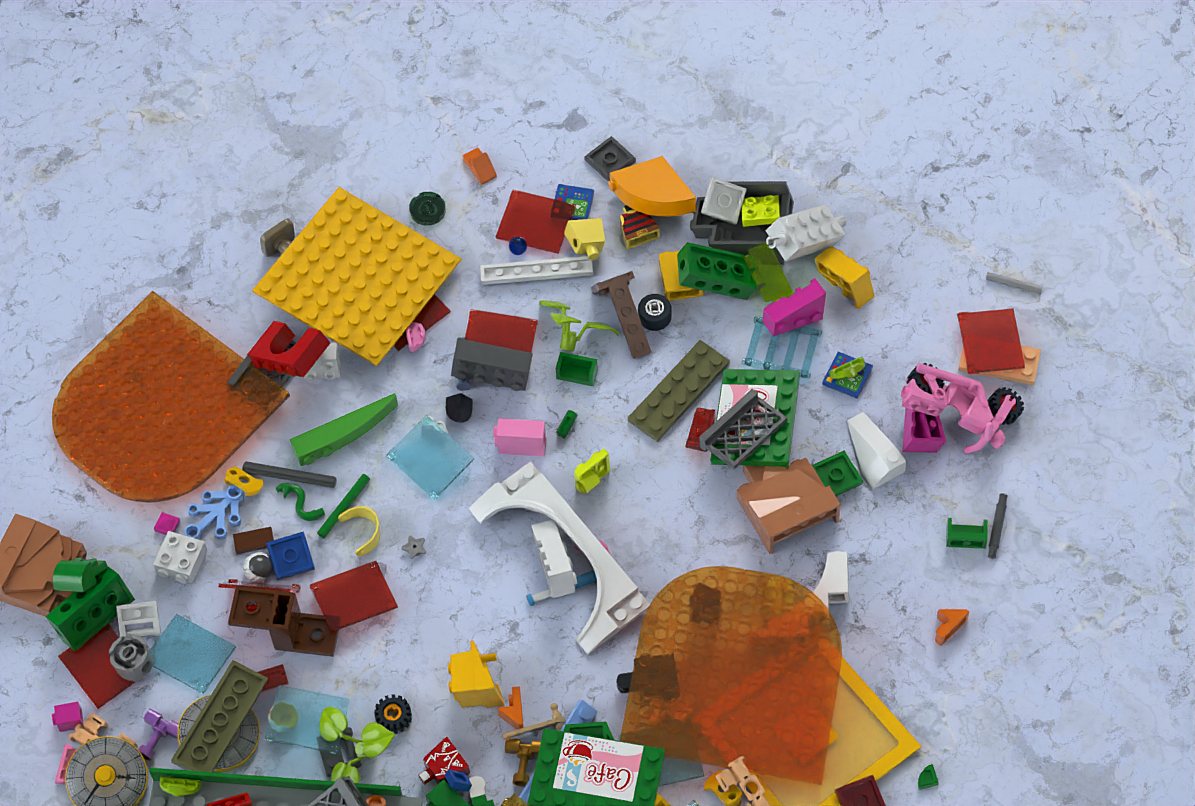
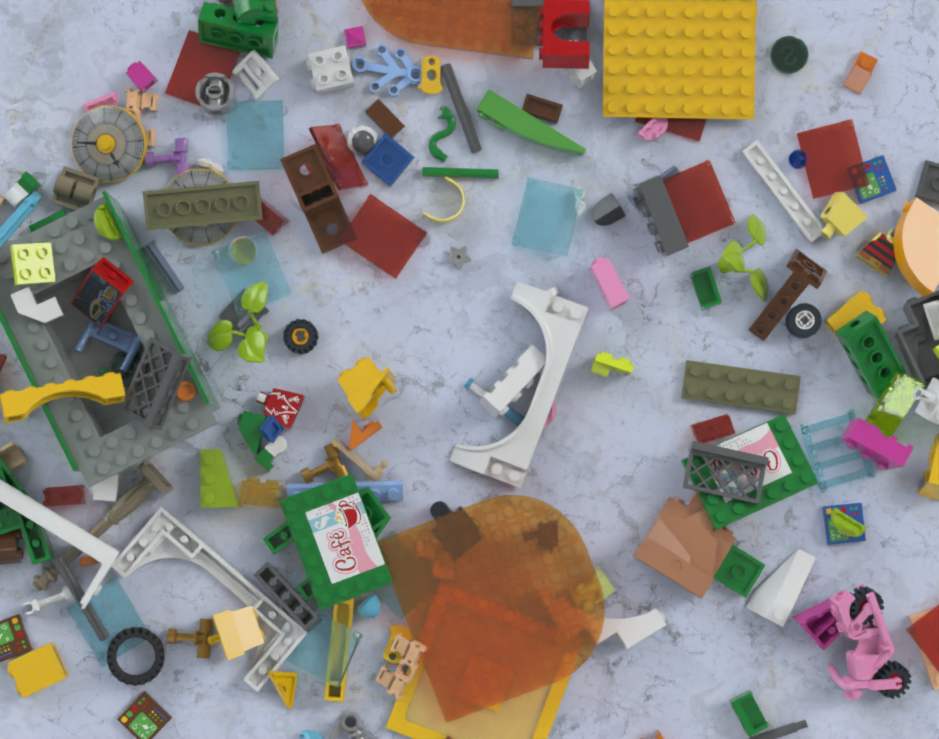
camera: 55 degrees right, 25 degrees up
(184, 706) = (206, 162): none -> white piece
(337, 409) = (542, 108): none -> reddish brown tile
(566, 423) = (649, 311): green piece -> none
(674, 791) = (370, 606): none -> medium azure cone

